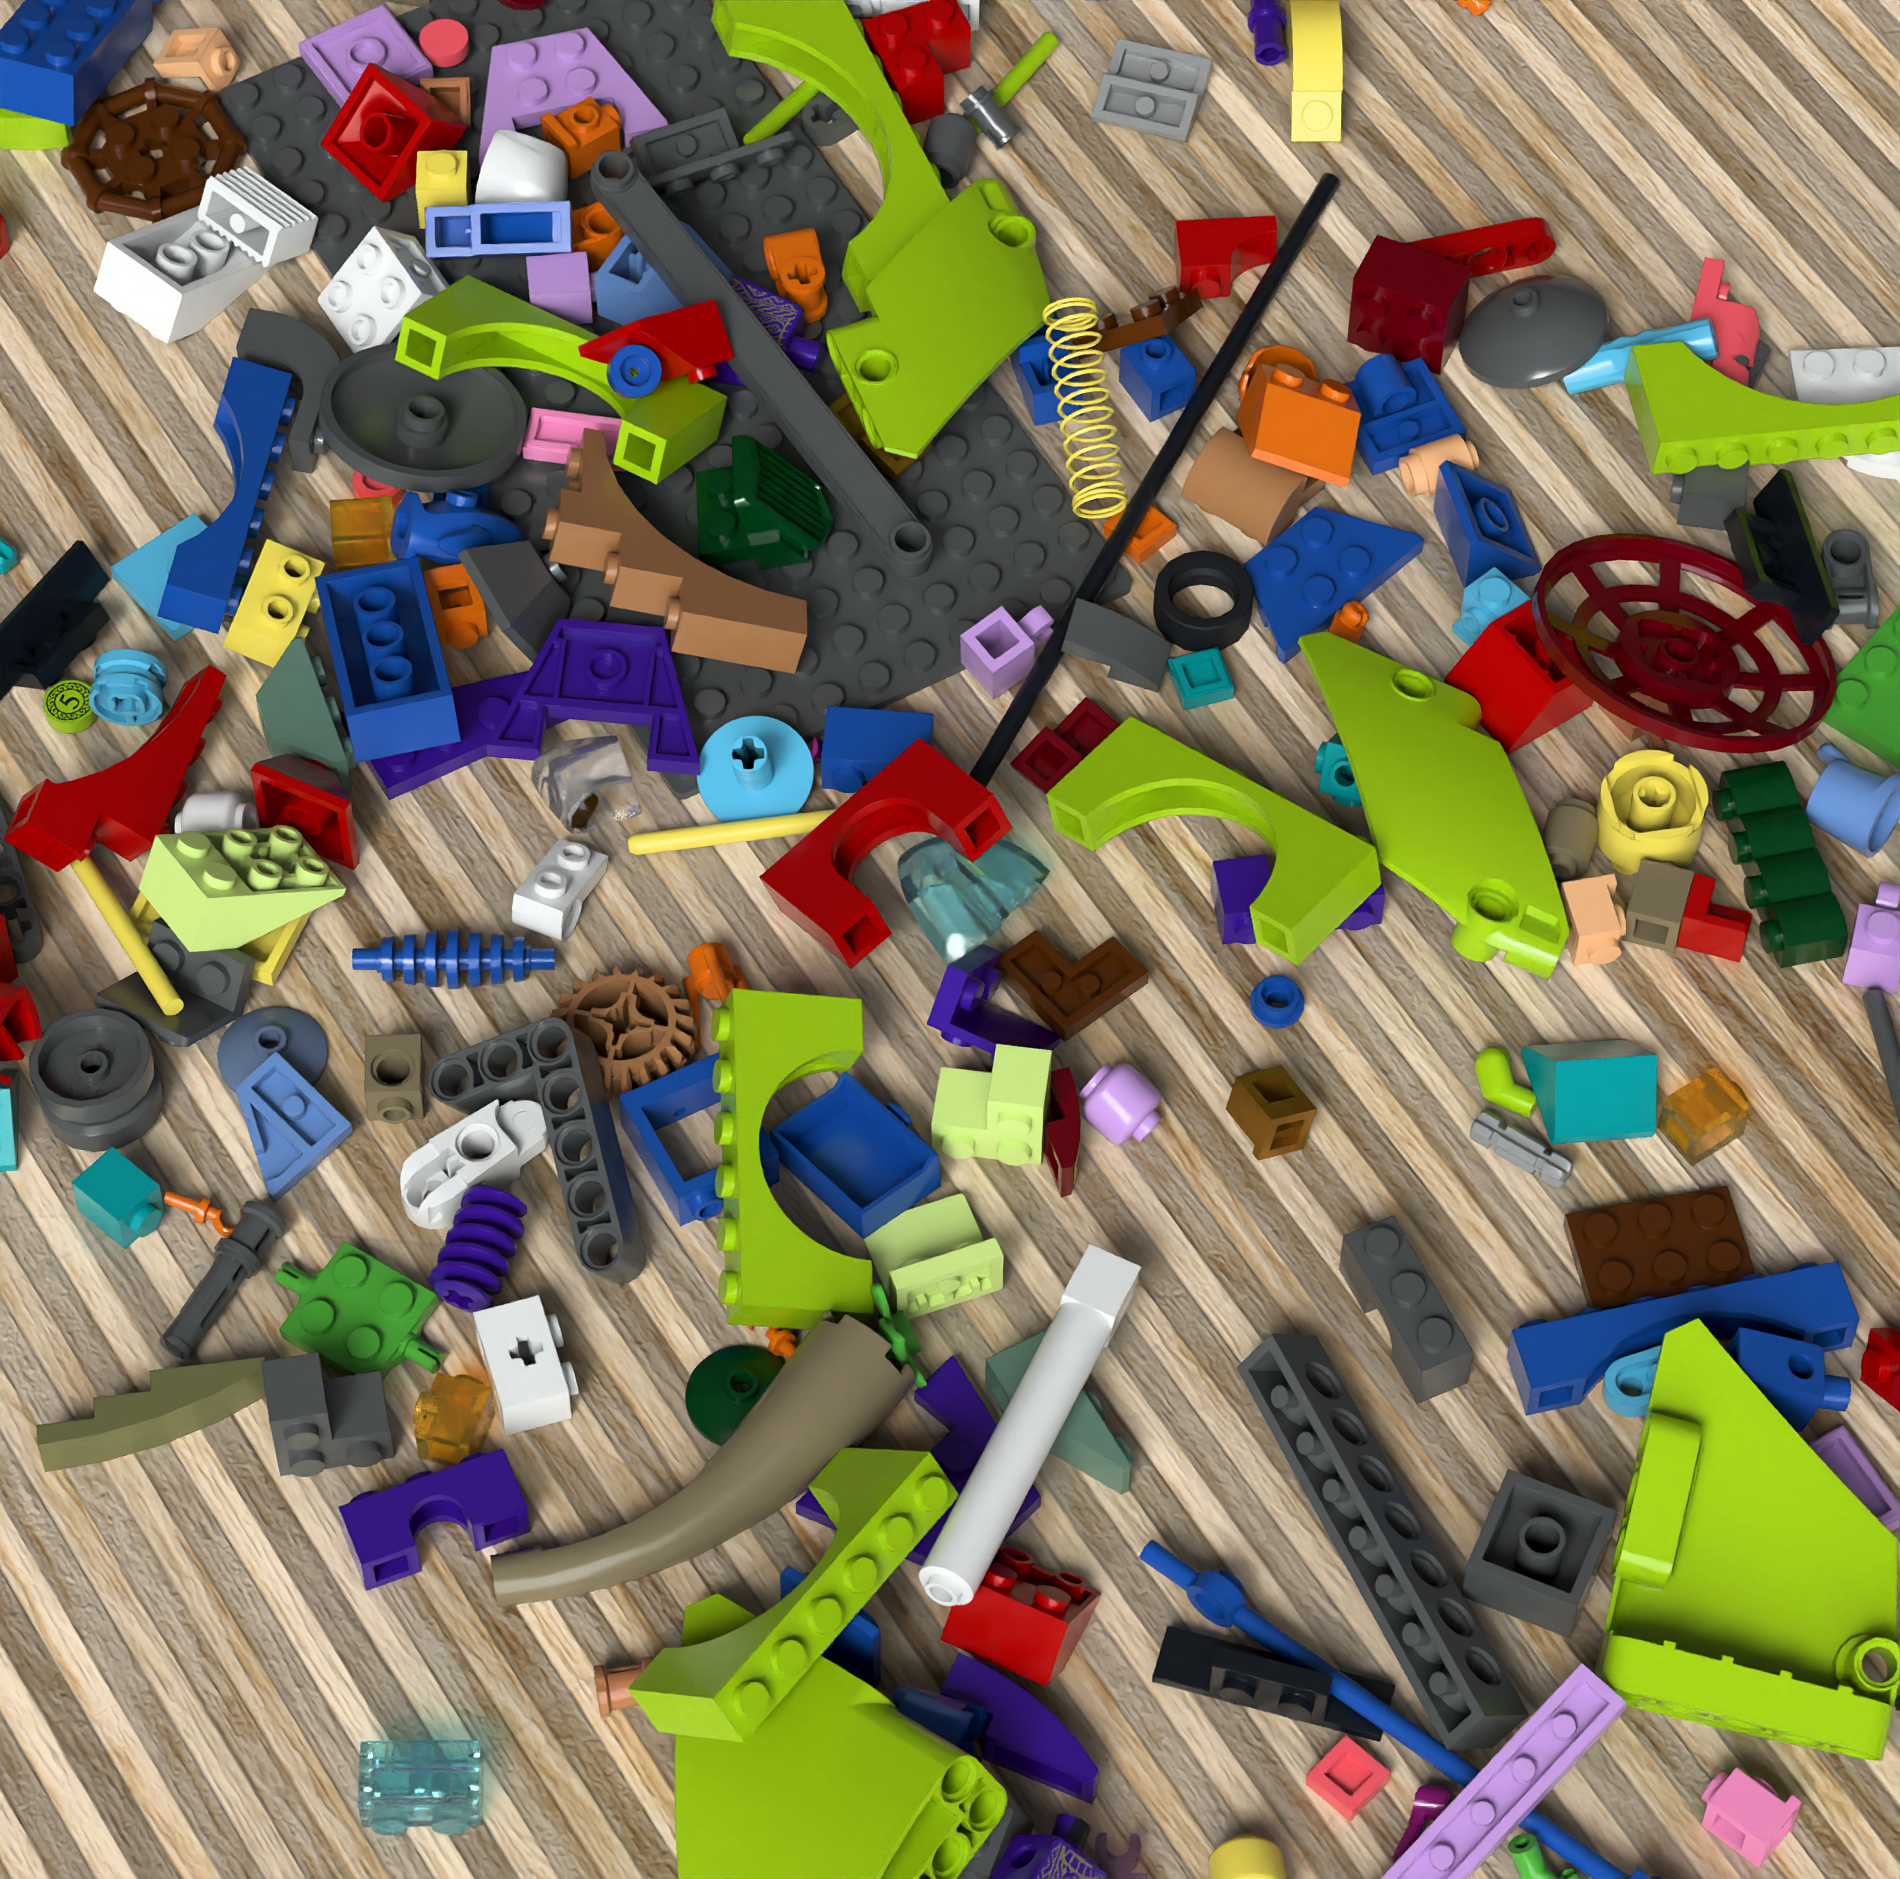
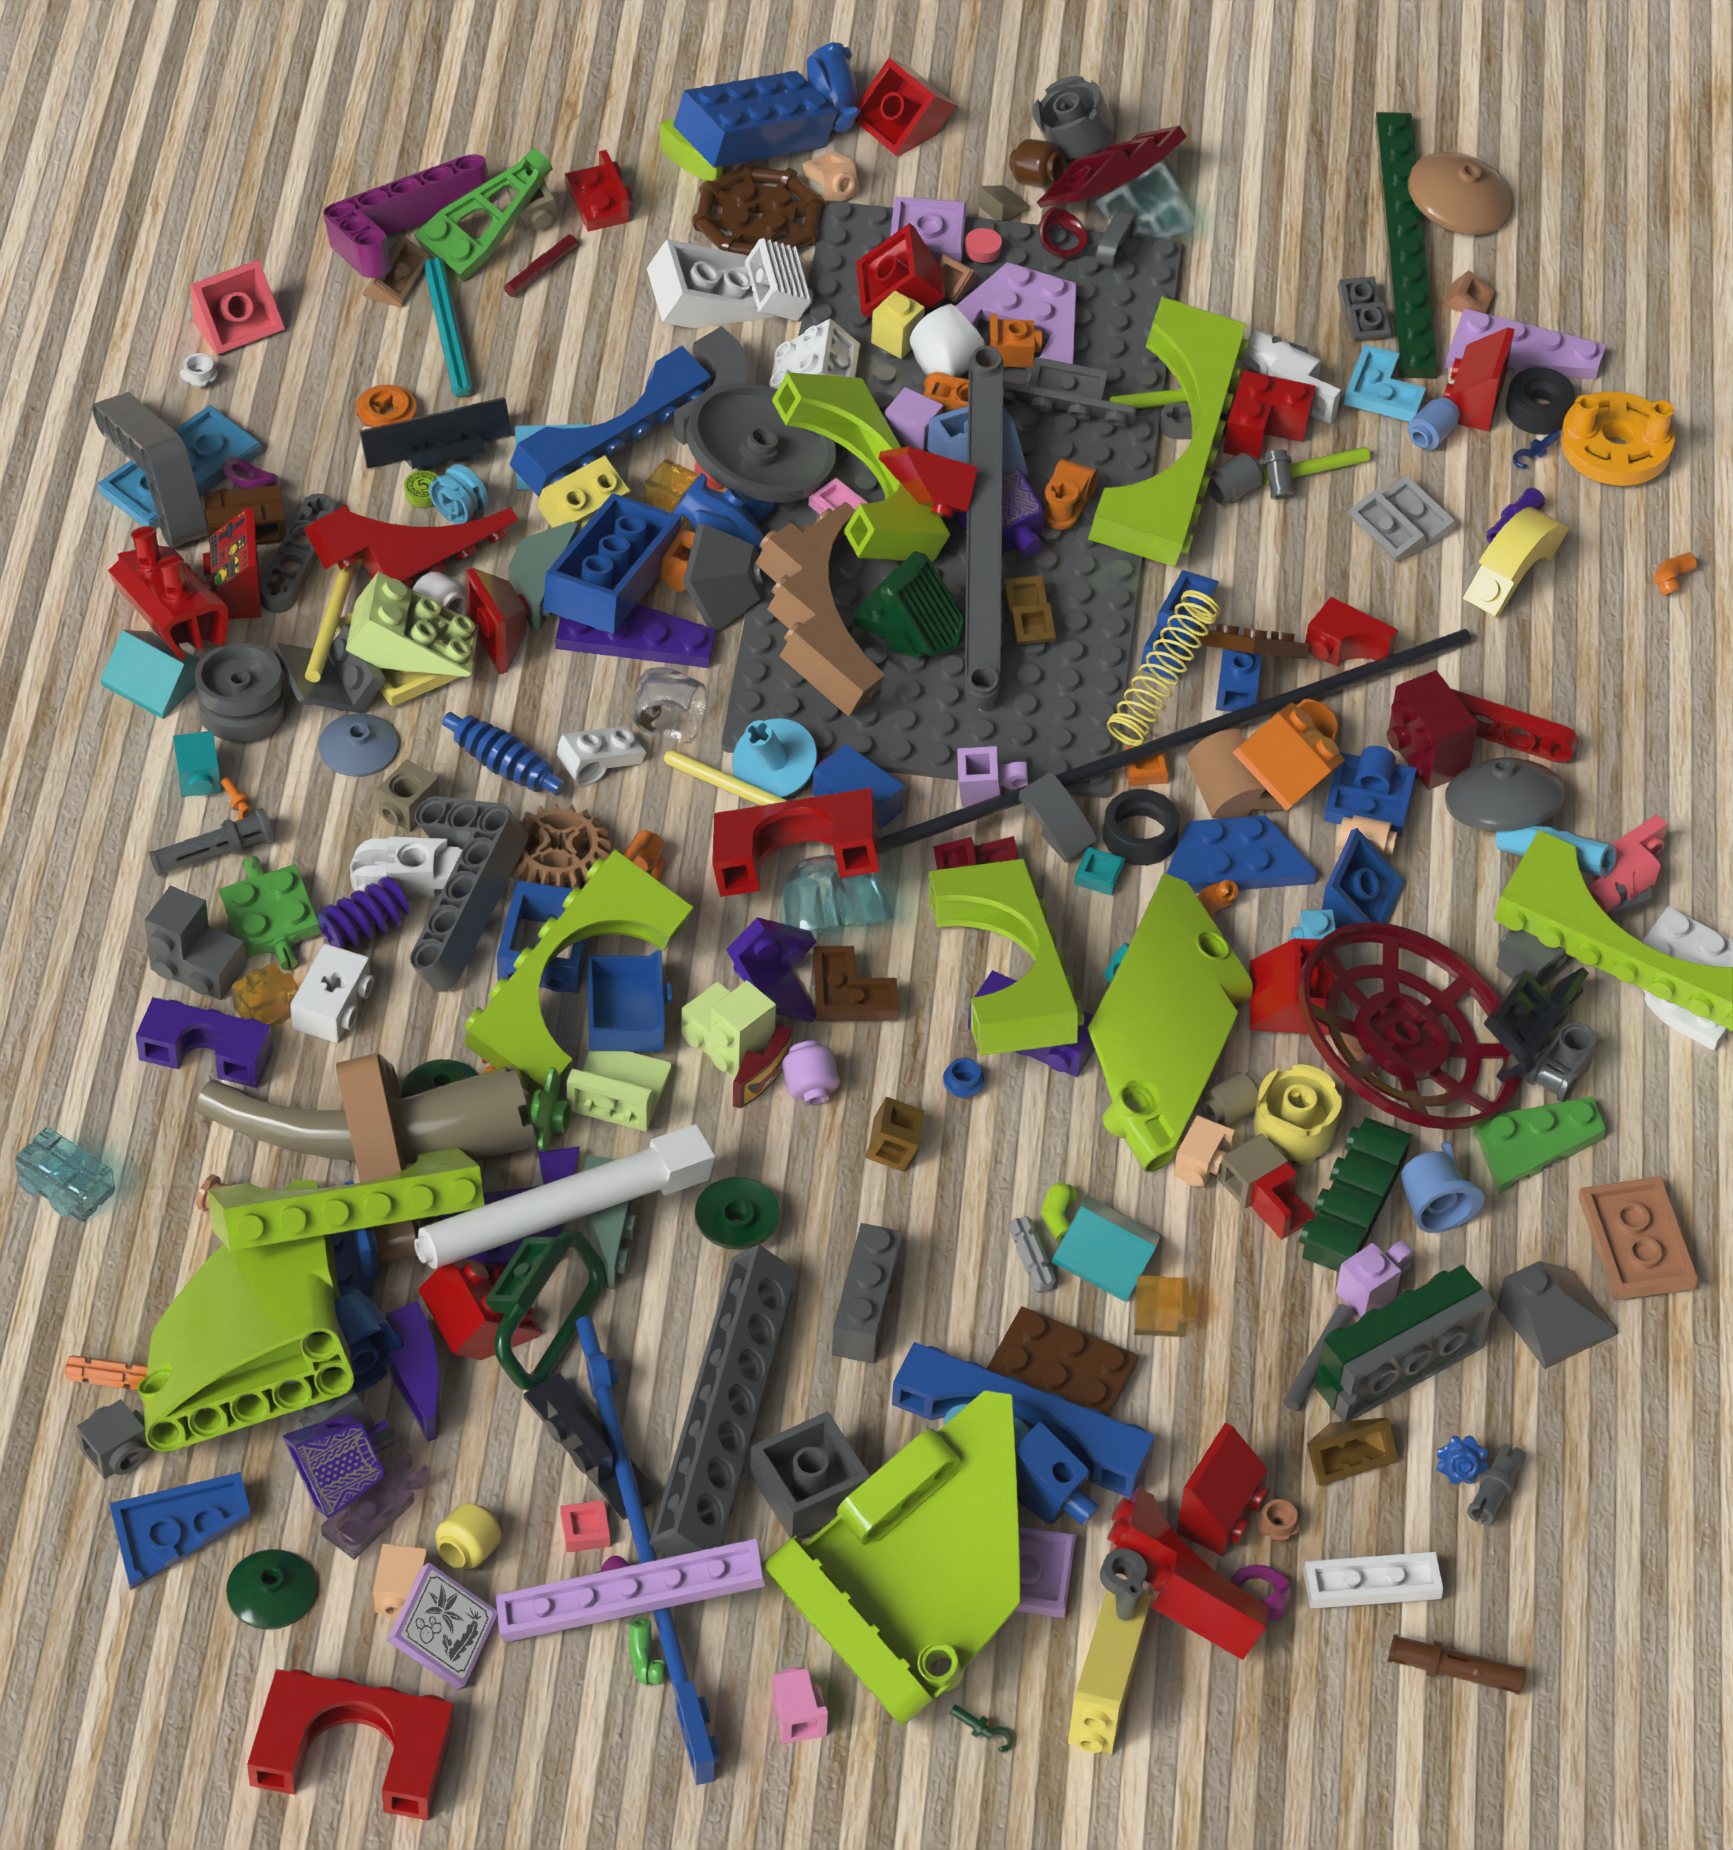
camera: 35 degrees right, 5 degrees down
(176, 1406) = (118, 892): olive slope -> none
(288, 1124) = (325, 784): medium blue wing -> none
(498, 230) = (900, 361): slope -> none
(601, 676) = (730, 648): dark purple wing -> none
(645, 370) = (889, 471): blue tile -> none
(700, 1446) = (367, 1092): none -> medium nougat beam
(942, 318) = (1129, 562): lime panel -> none
(1078, 1558) = (519, 1289): none -> dark green bar
(1192, 1294) = (737, 1199): none -> dark green dish

